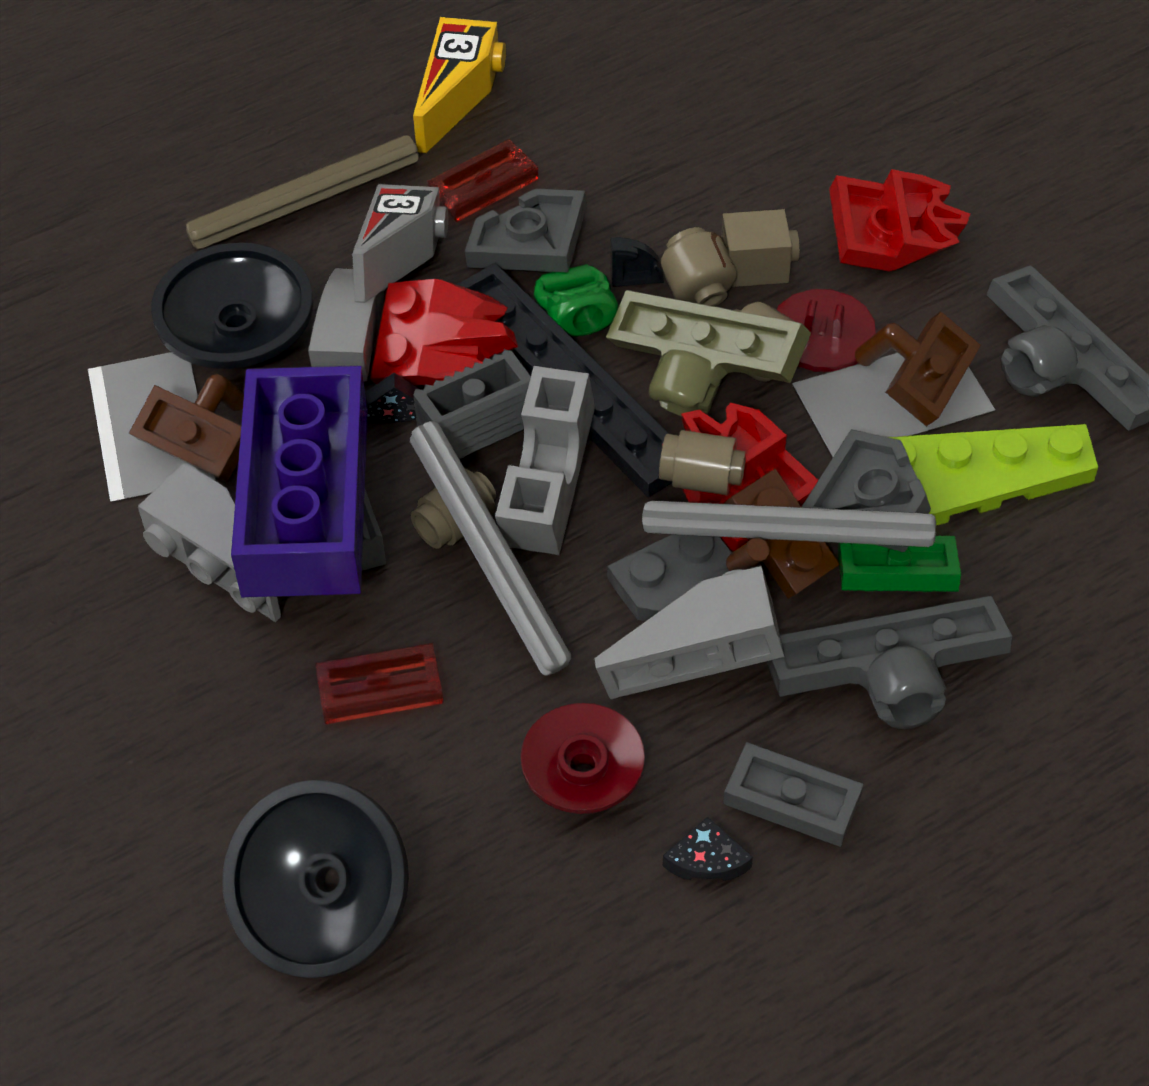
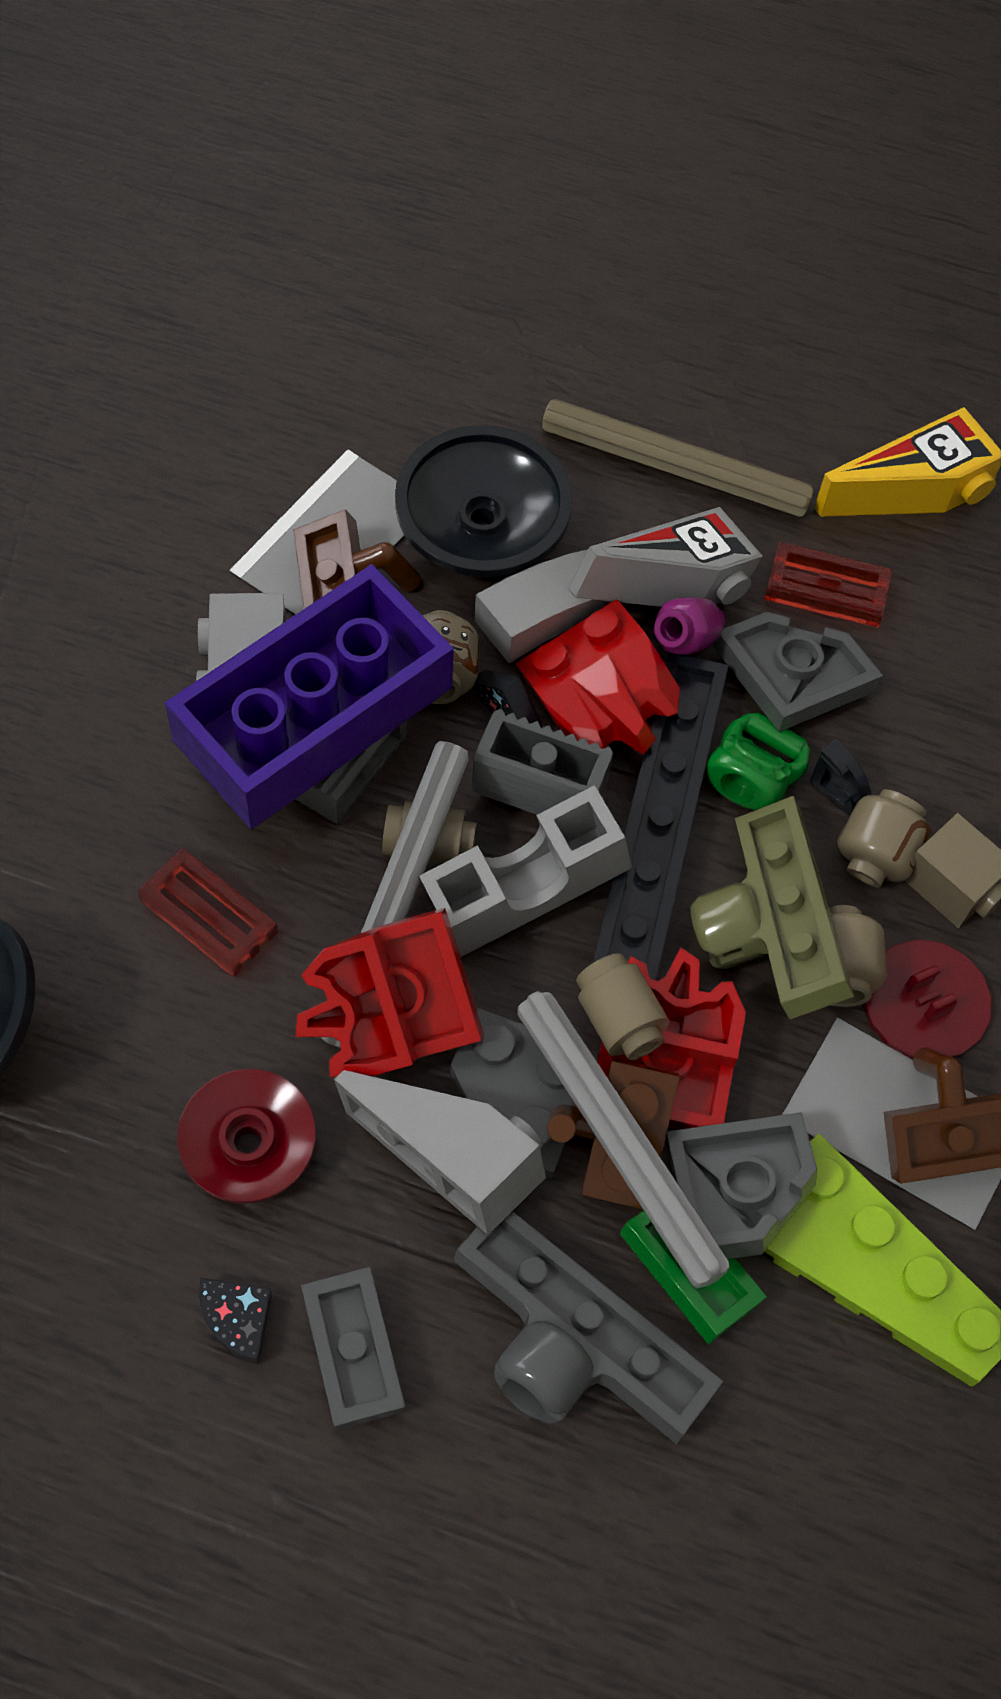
camera: 45 degrees right, 10 degrees up
(455, 268) = (688, 625): none -> magenta plant
(569, 591) = (392, 996): none -> red plate

